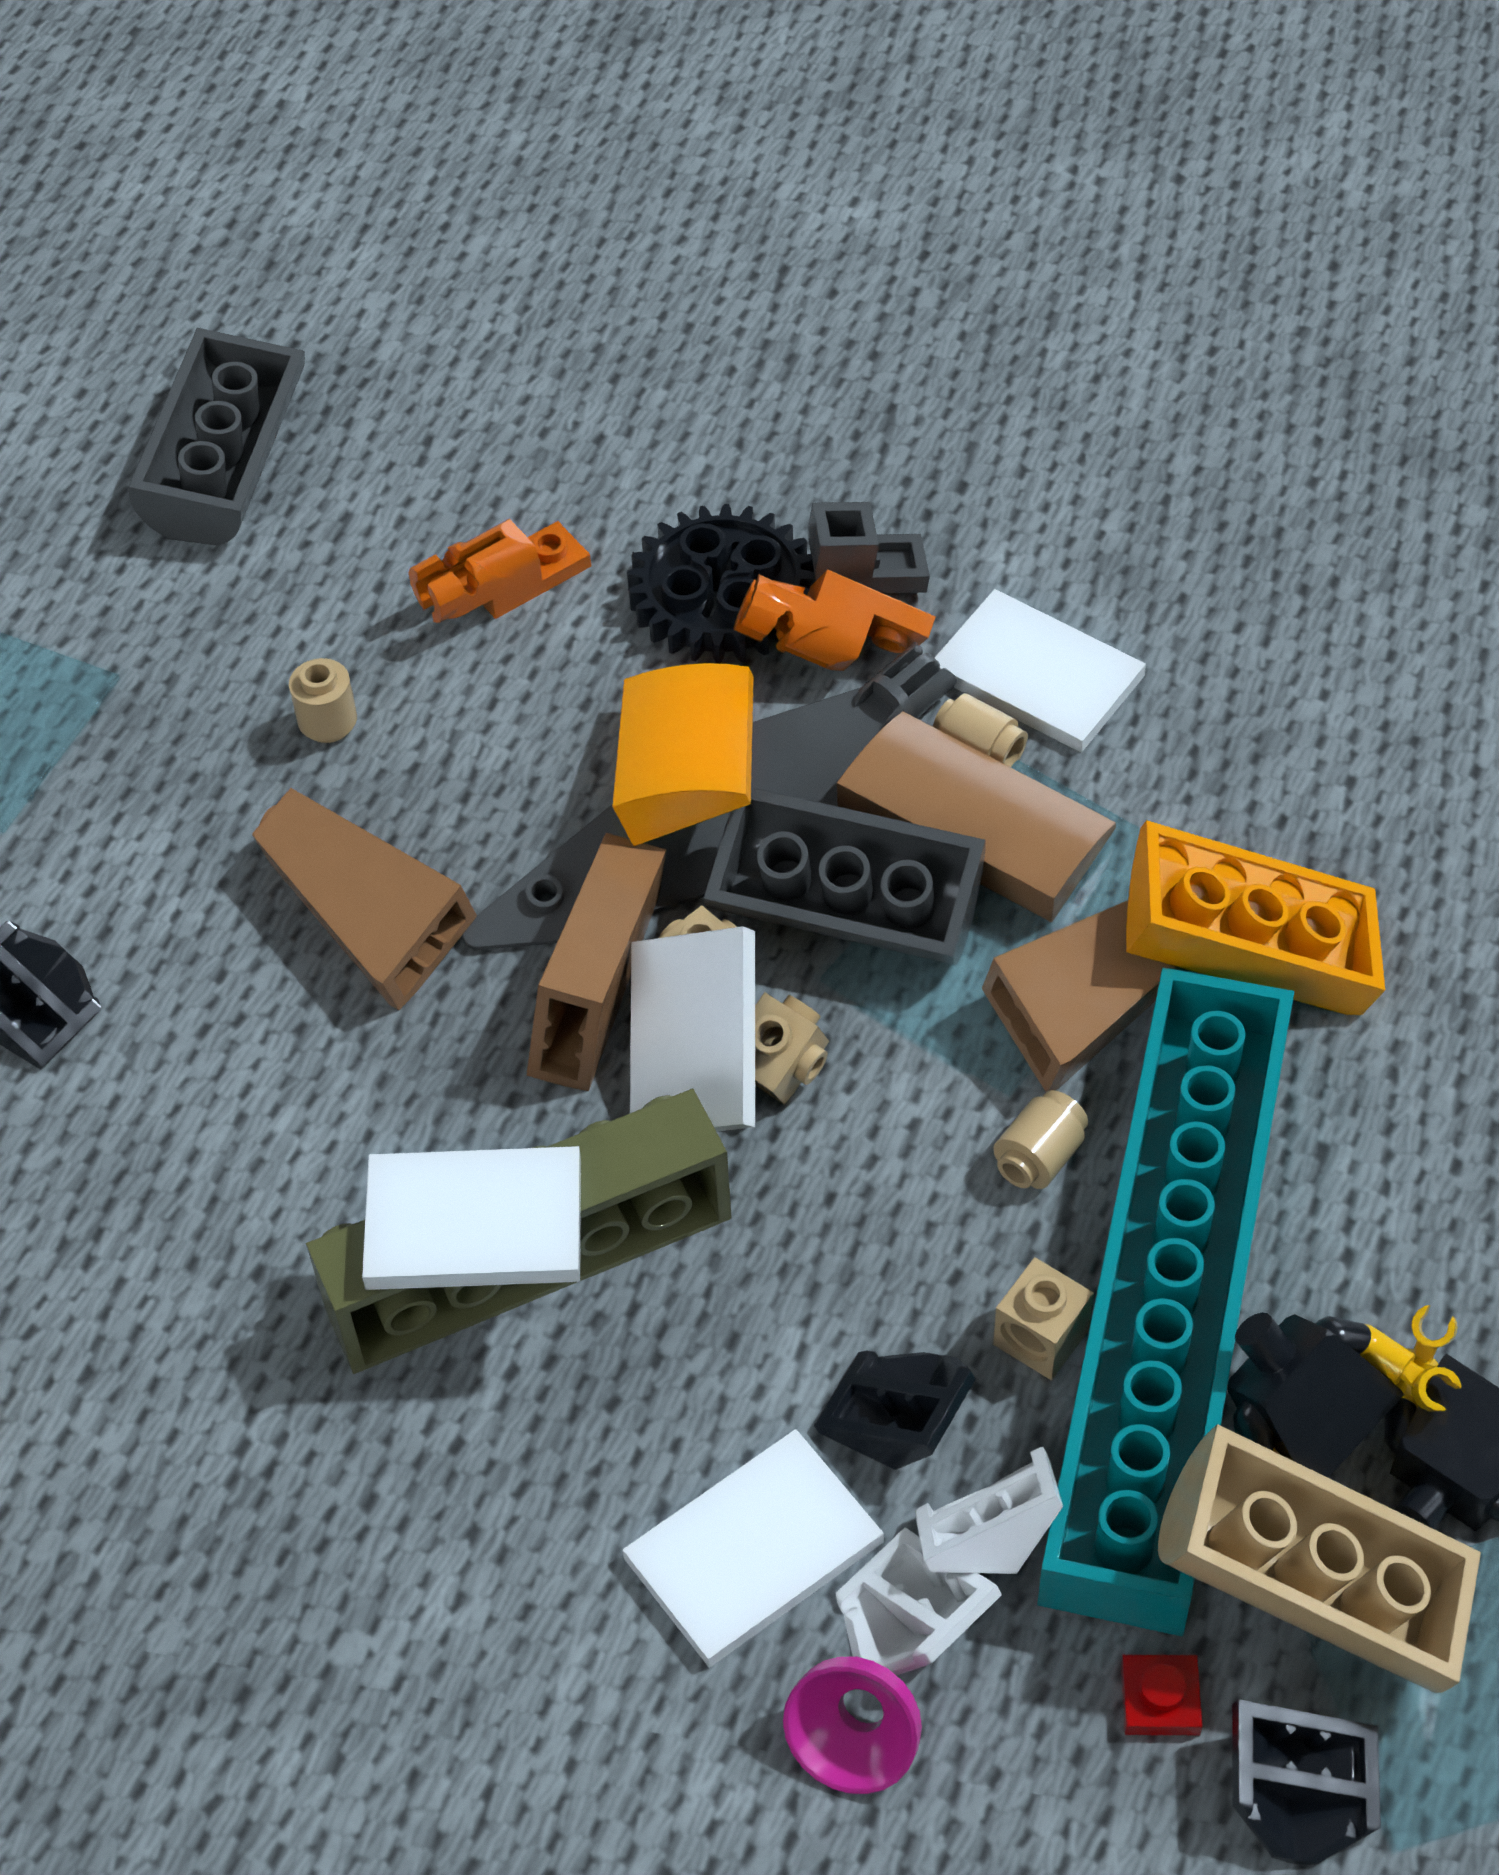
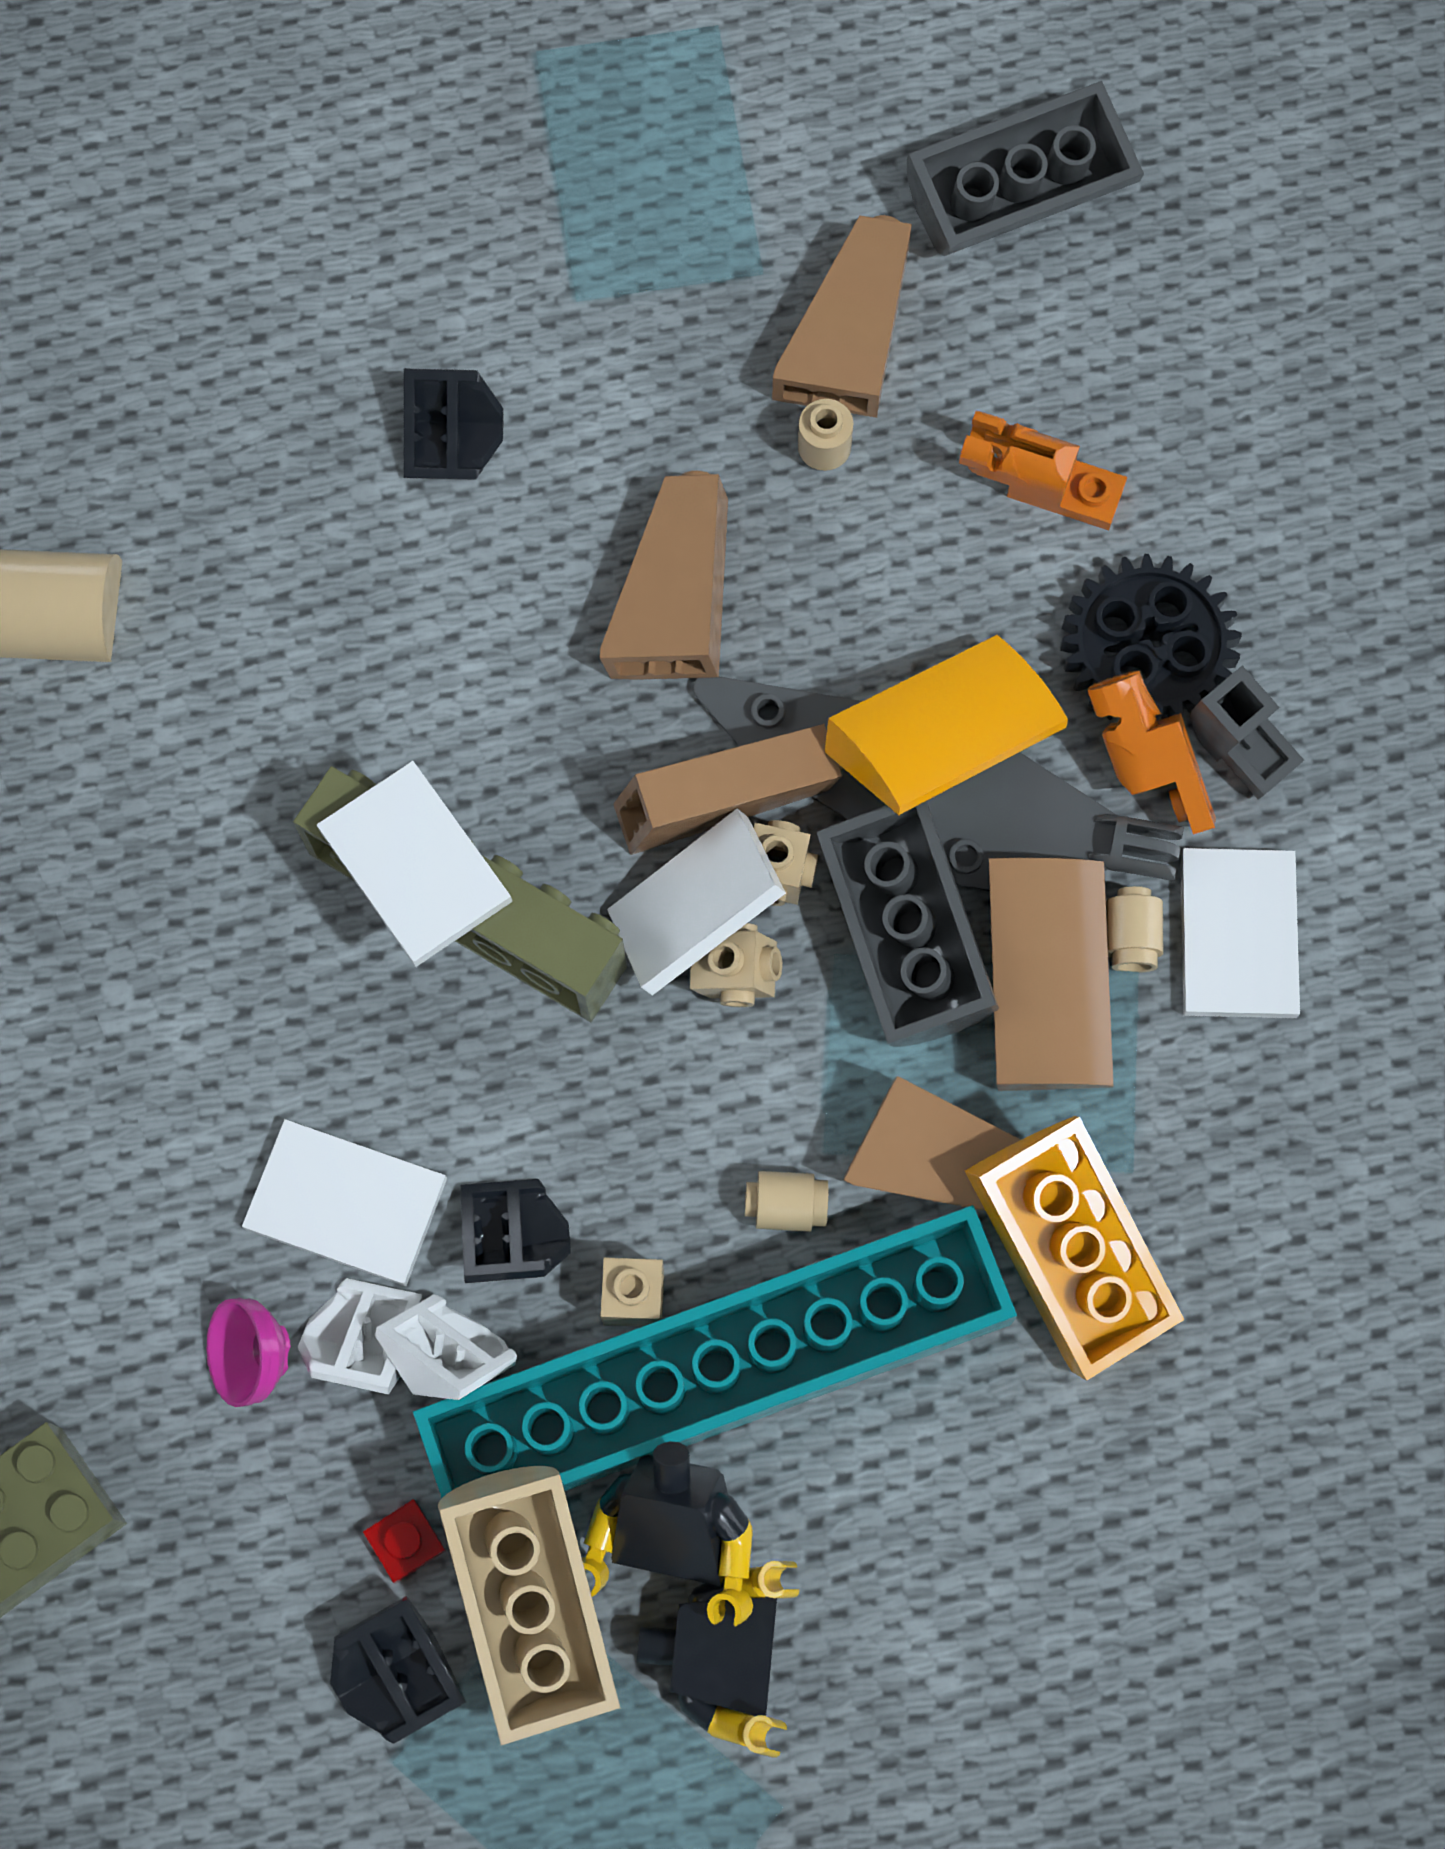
camera: 55 degrees right, 20 degrees up
(234, 628) = (850, 324): none -> medium nougat slope

